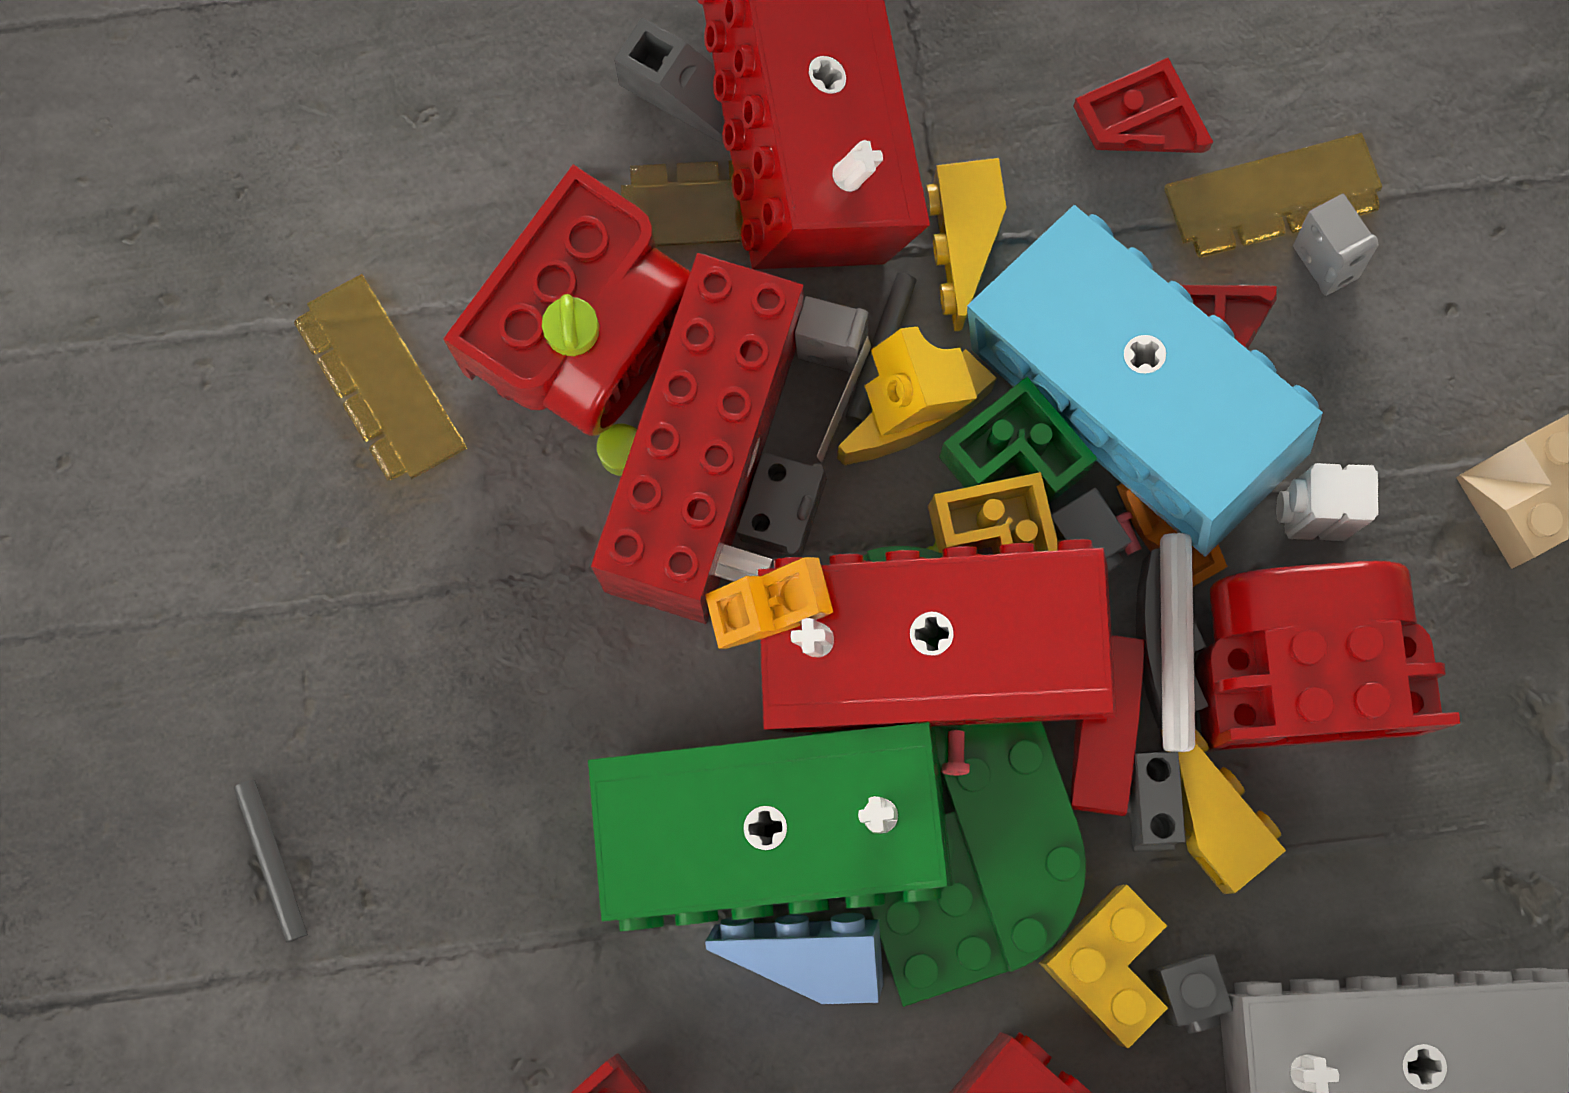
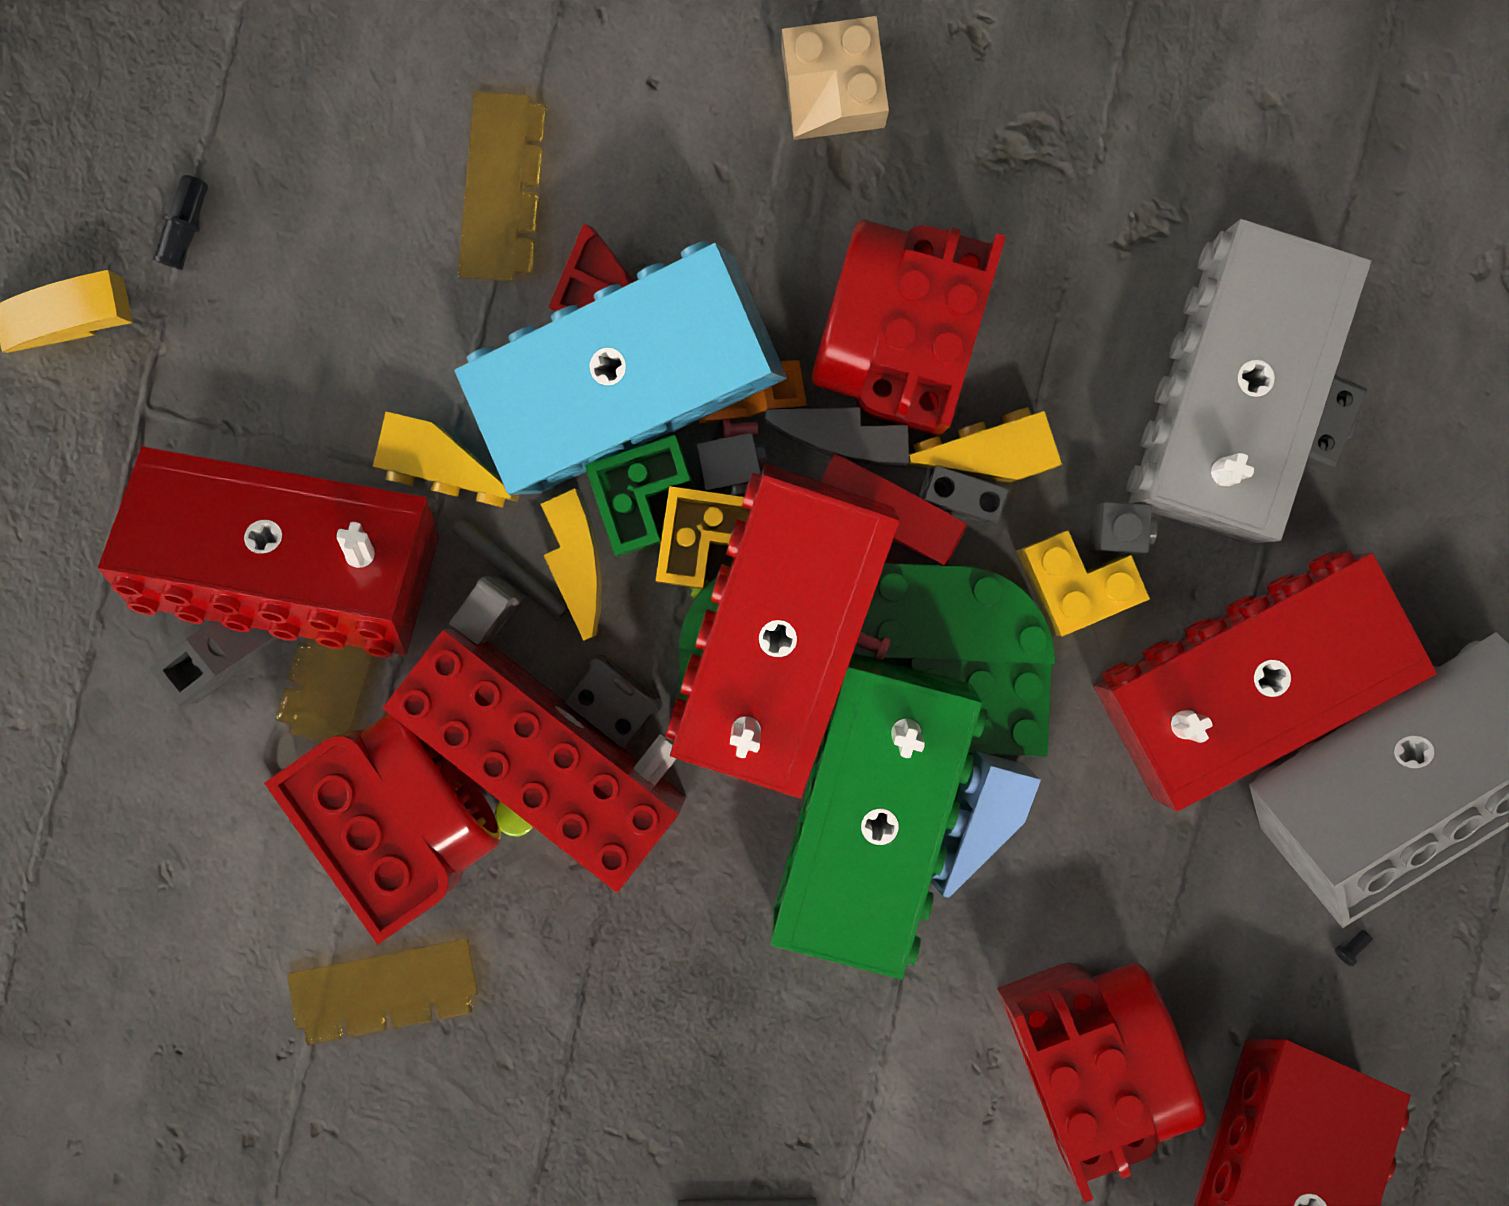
camera: 70 degrees left, 10 degrees up
(570, 326) = (406, 837): lime tile -> none
(768, 603) = (702, 759): light orange slope -> none
(844, 400) = (544, 618): white sticker -> none
(916, 382) = (556, 559): yellow brick -> none
(1144, 114) = (389, 270): red wing -> none
(1177, 642) = (849, 430): white axle -> none
(1329, 502) = (780, 257): white brick -> none
(1335, 244) = (565, 159): light grey piece -> none

